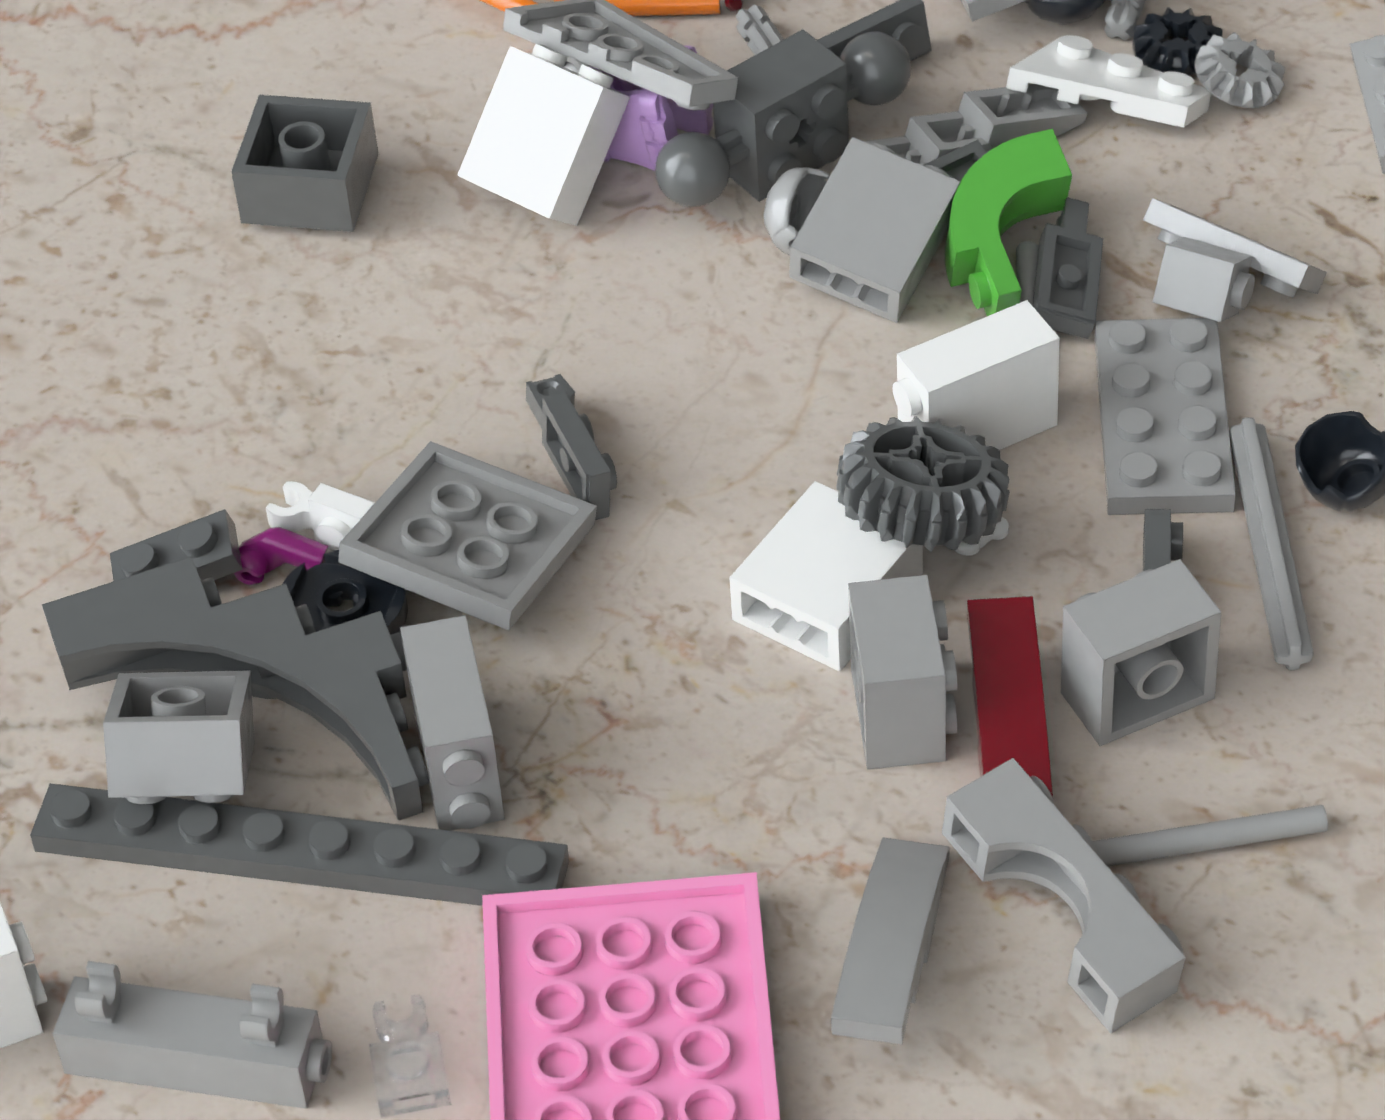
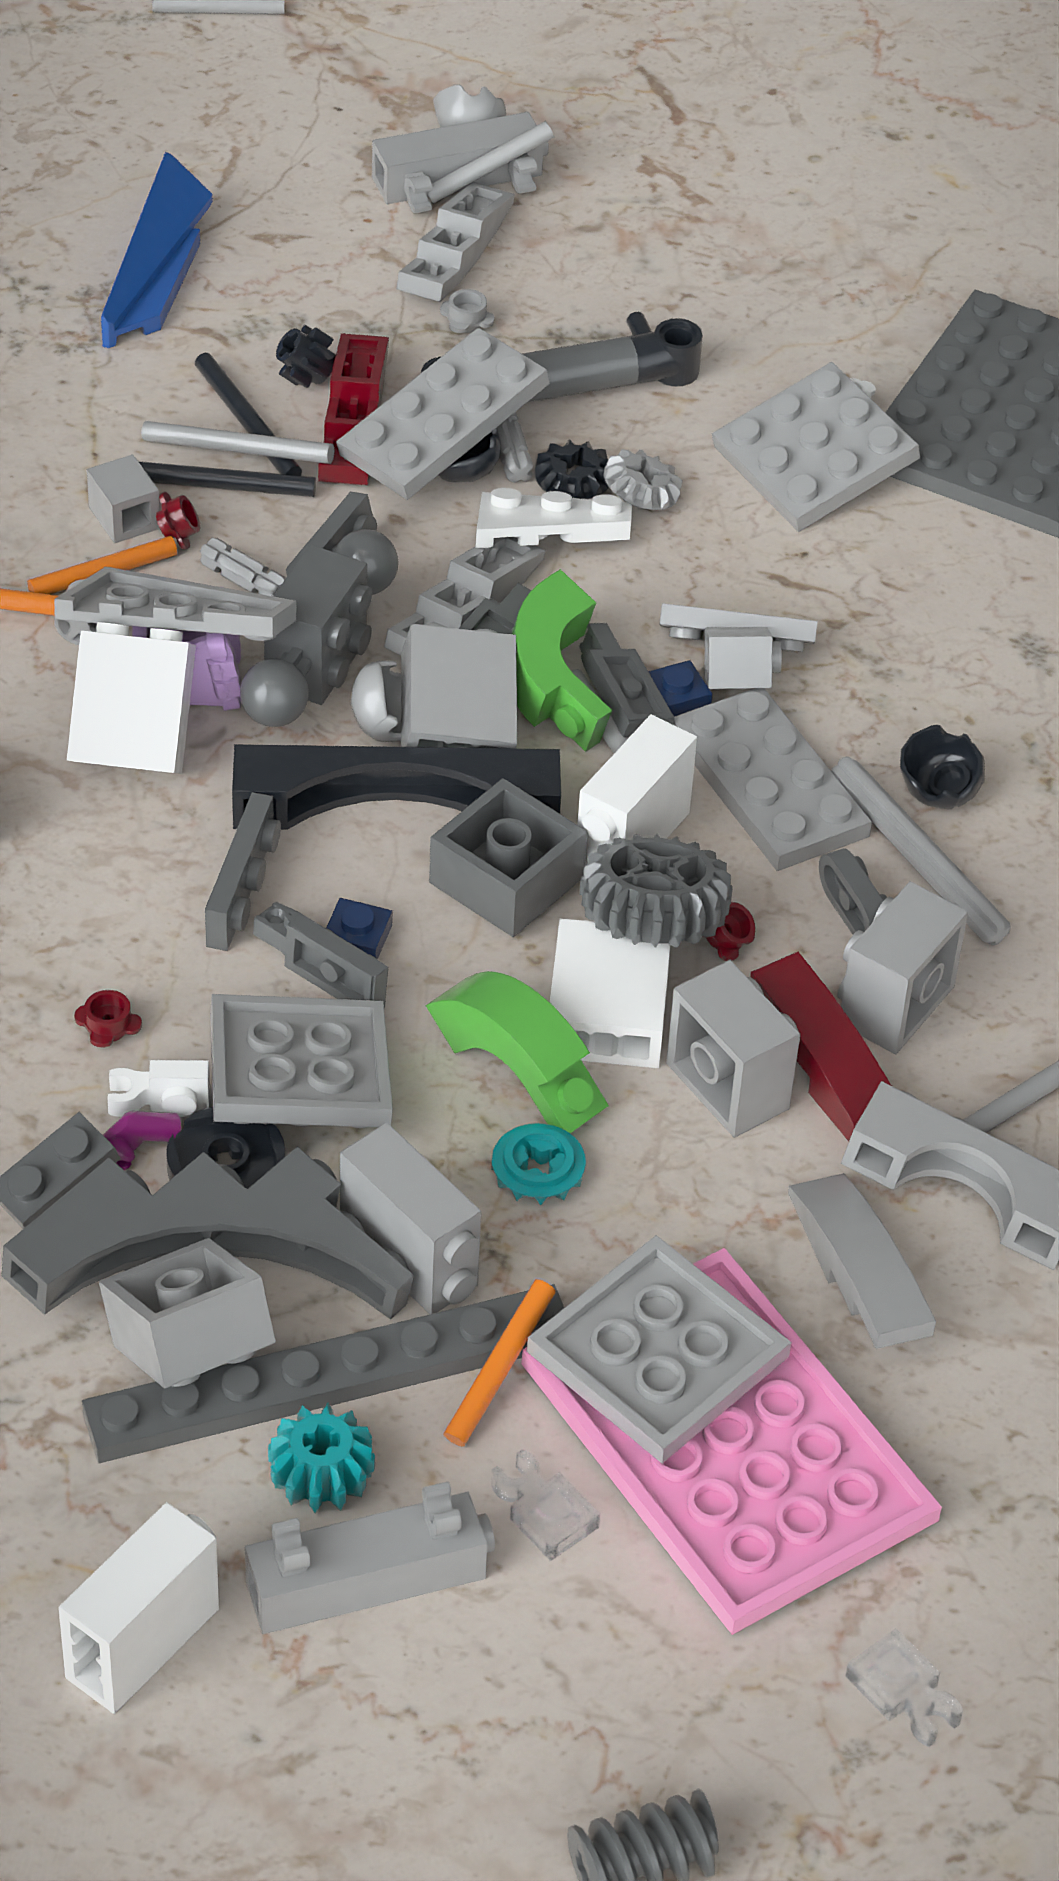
camera: 35 degrees left, 0 degrees up
(221, 924) = (321, 1457): none -> teal gear
(333, 433) = (107, 1017): none -> dark red plate
(452, 899) = (499, 1363): none -> orange bar
(549, 334) = (241, 872): none -> dark grey plate
(604, 945) = (658, 1348): none -> light grey plate
(614, 714) = (544, 1145): none -> teal gear
(631, 431) = (361, 925): none -> dark blue plate
(663, 266) = (321, 778): none -> black arch
(697, 602) = (528, 1036): none -> bright green arch
(807, 400) = (507, 857): none -> dark grey brick
(1016, 557) = (736, 932): none -> dark red plate
(1127, 293) = (681, 687): none -> dark blue plate

